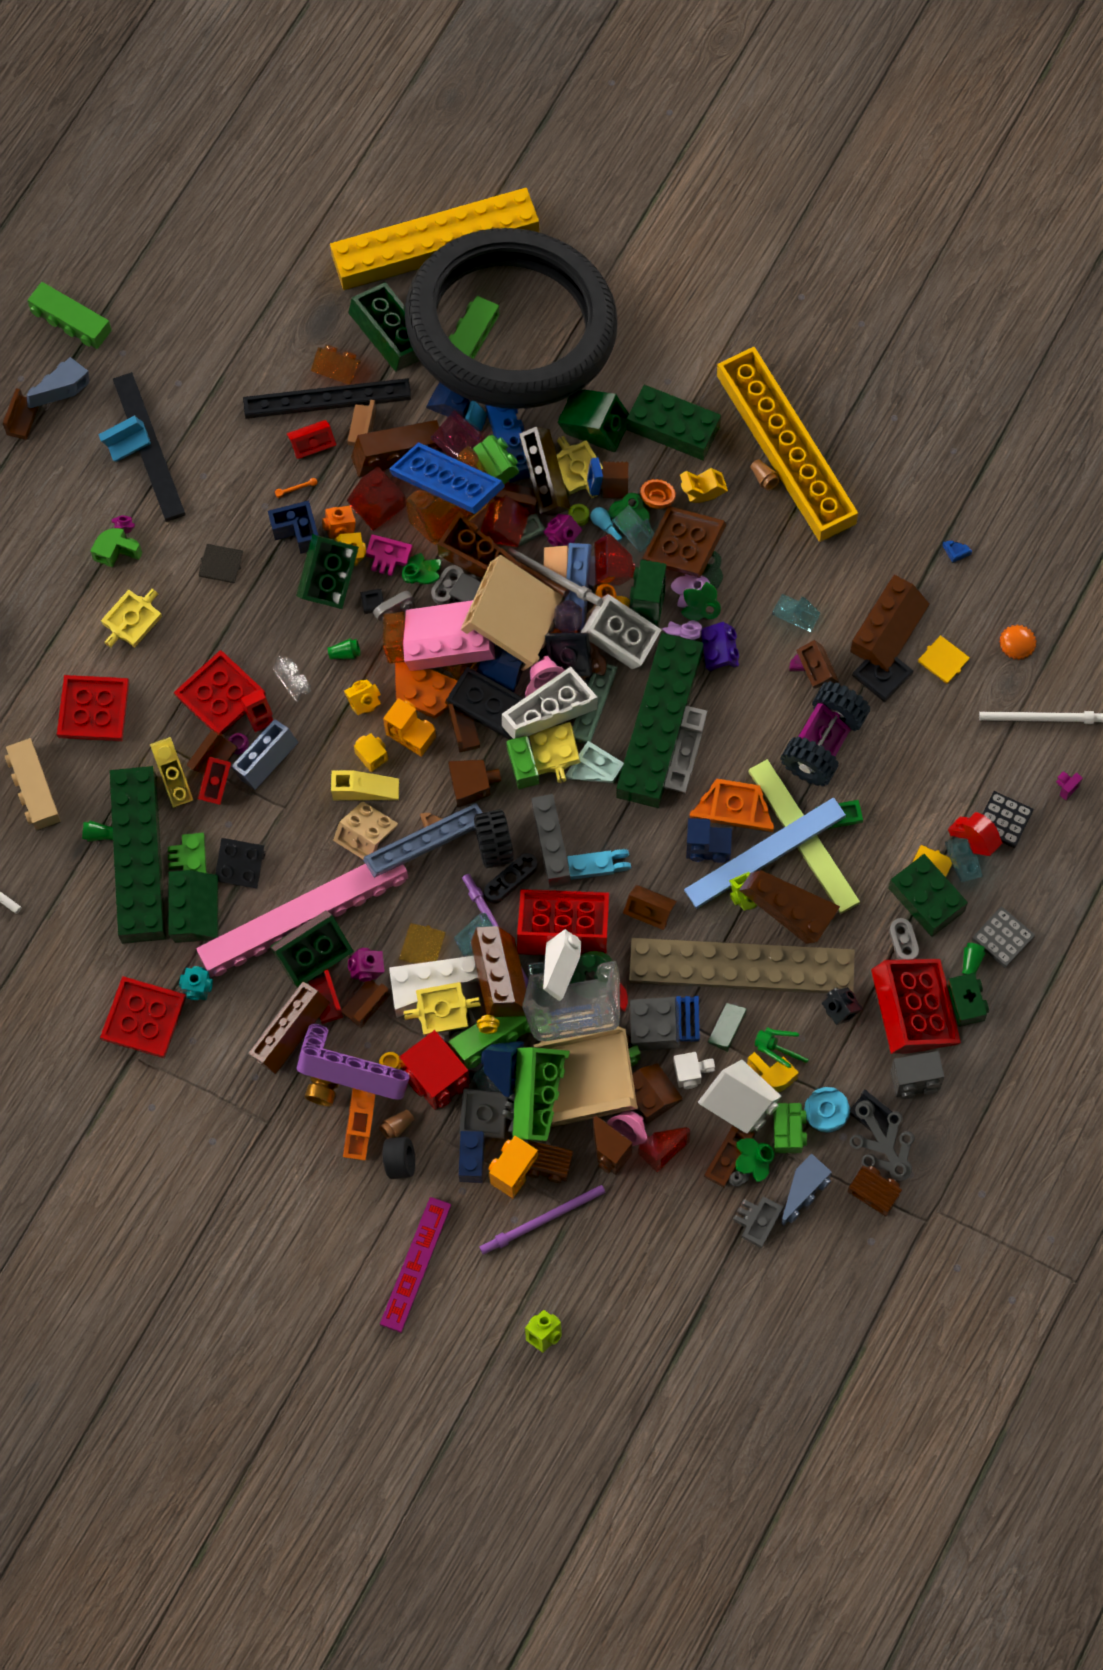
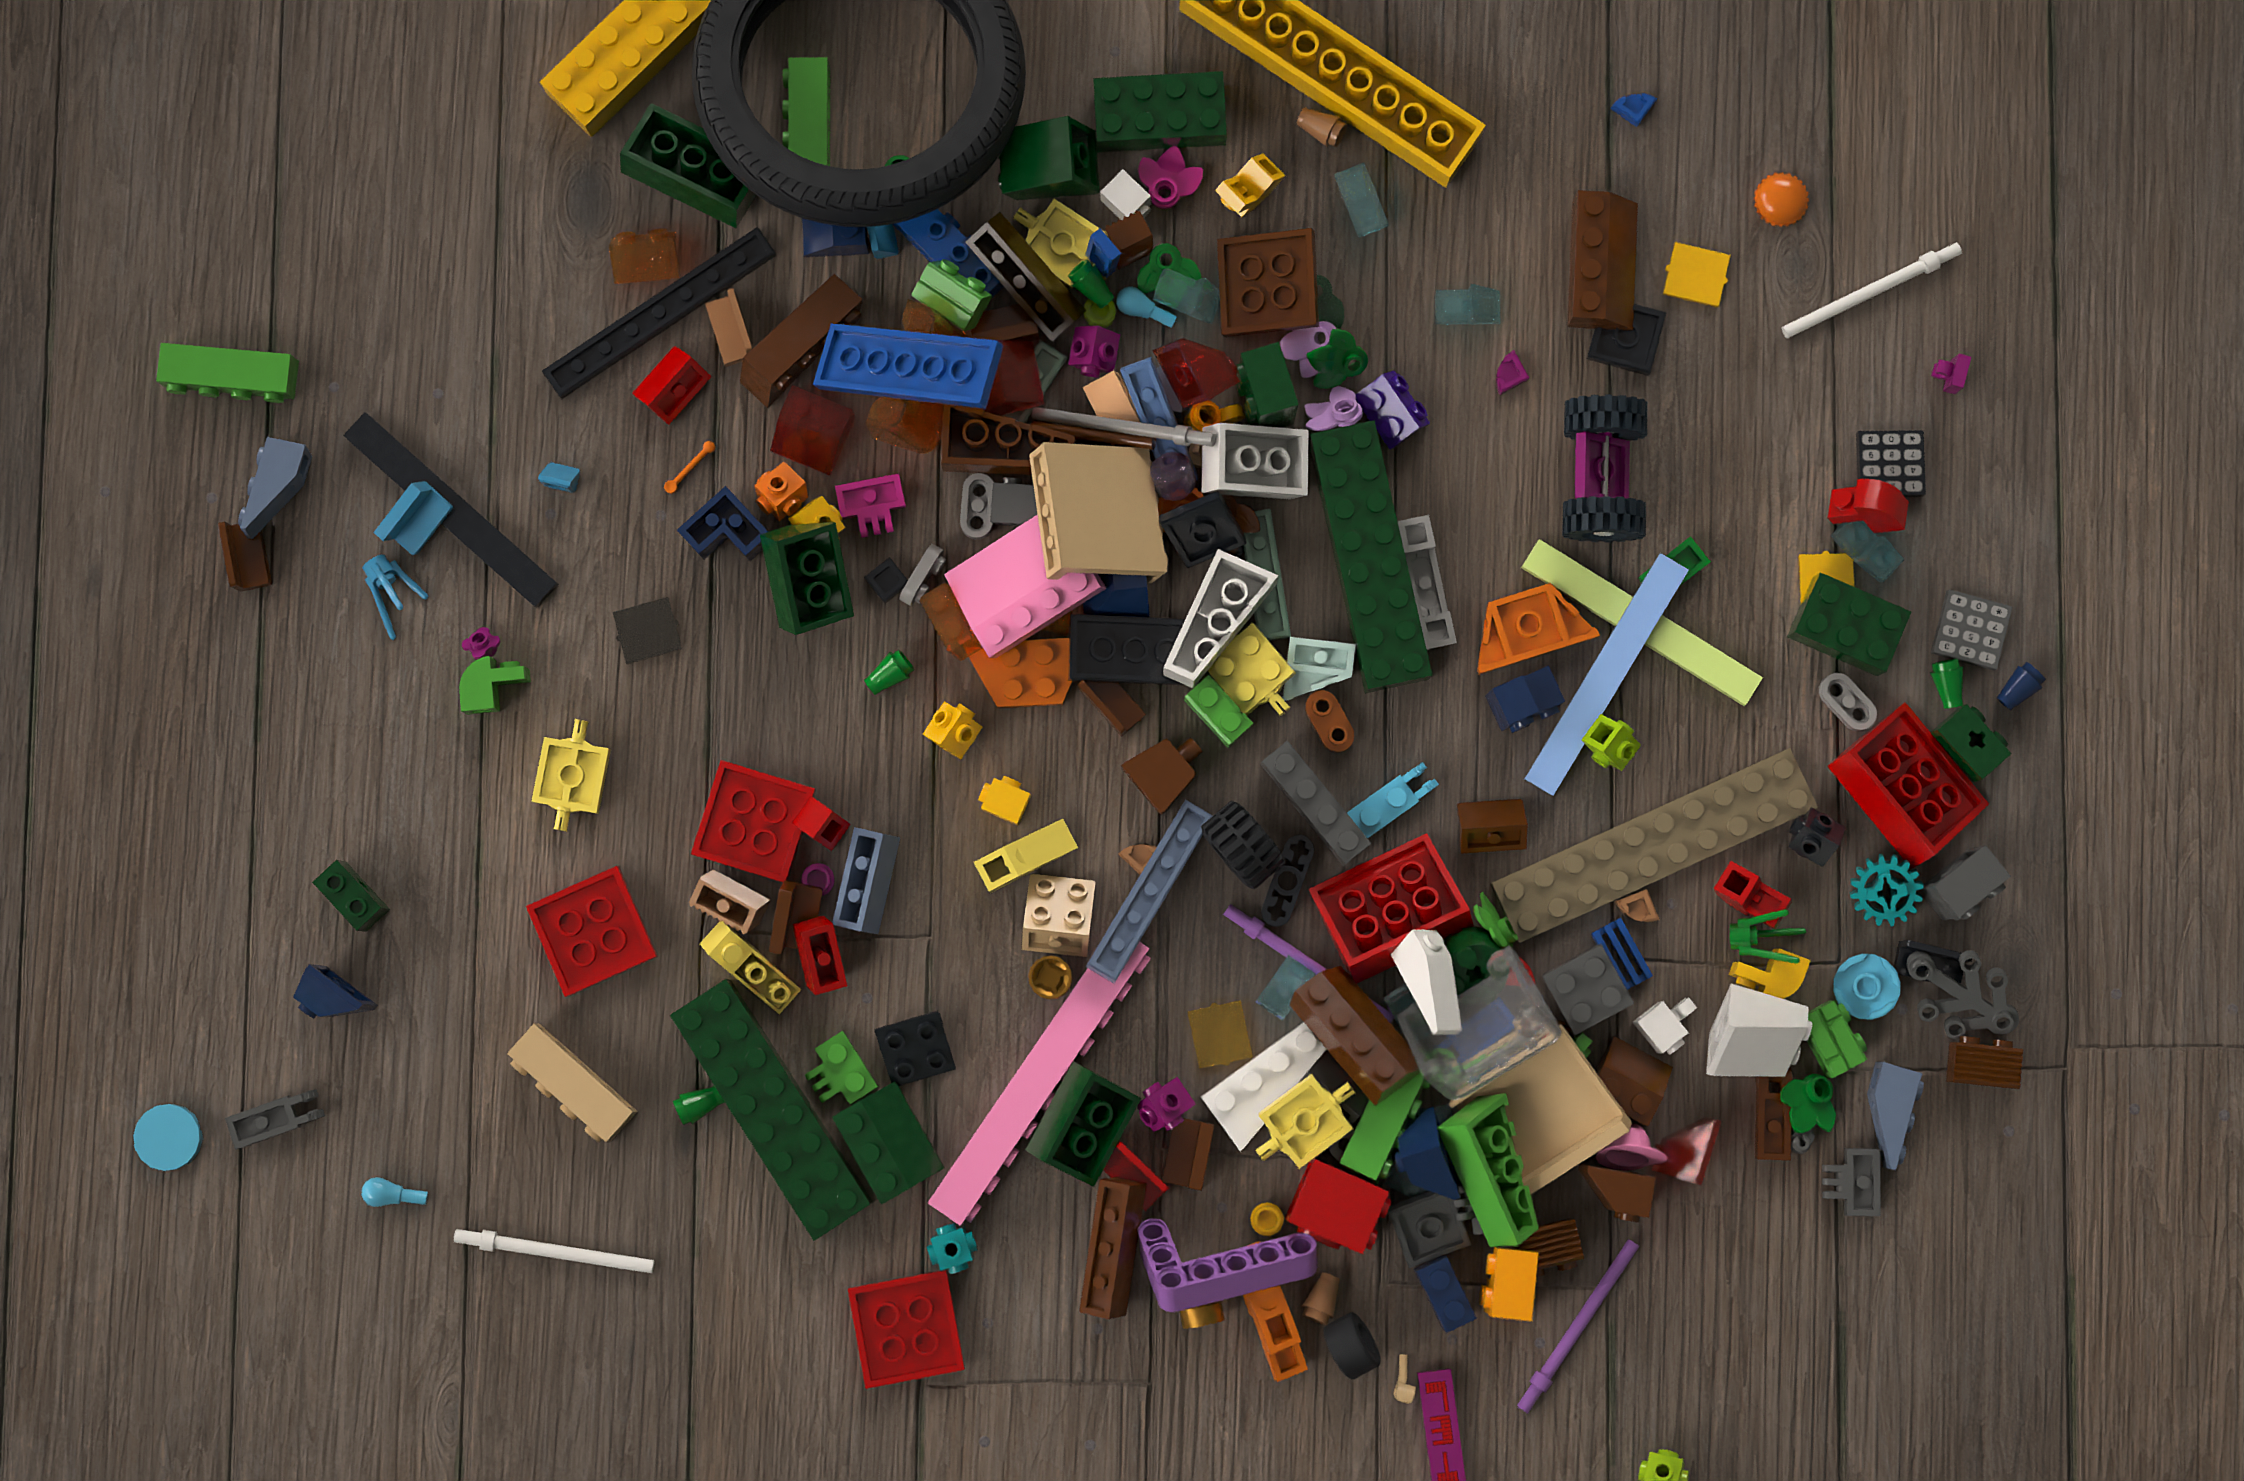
camera: 30 degrees left, 15 degrees up
(90, 462) = (381, 575): none -> dark azure plant
(180, 727) = (729, 901): none -> medium nougat brick
(219, 458) = (560, 477): none -> dark azure slope
(286, 670) = (824, 743): clear hinge -> none
(339, 859) = (1050, 977): none -> pearl gold wheel
(407, 729) = (1042, 743): light orange brick -> none
(415, 1203) = (1403, 1391): none -> tan hand
(421, 570) = (934, 499): green plate -> none
(456, 435) = (876, 285): clear pink tile -> none
(488, 1024) = (1381, 1115): yellow plate -> none
(542, 673) = (1184, 579): bright pink piece -> none
(580, 492) = (1090, 283): none -> green cone
(586, 800) = (1328, 721): none -> dark orange plate
(619, 955) = (1499, 929): none -> bright green plate
(629, 453) = (1125, 196): none -> white brick
(657, 493) = (1193, 228): orange hat -> none
(660, 459) = (1169, 174): none -> dark pink plate
(712, 996) = (1638, 907): none -> medium nougat tile
(727, 1026) = (1679, 939): slope -> none
(765, 524) = (1361, 200): none -> clear light blue slope
(781, 1016) = (1749, 895): none -> red brick
(791, 906) = (1691, 737): reddish brown wedge -> none
(816, 664) = (1537, 371): reddish brown panel -> none
(869, 1049) = (1899, 889): none -> teal gear
(1016, 982) = (2020, 686): none -> dark blue cone

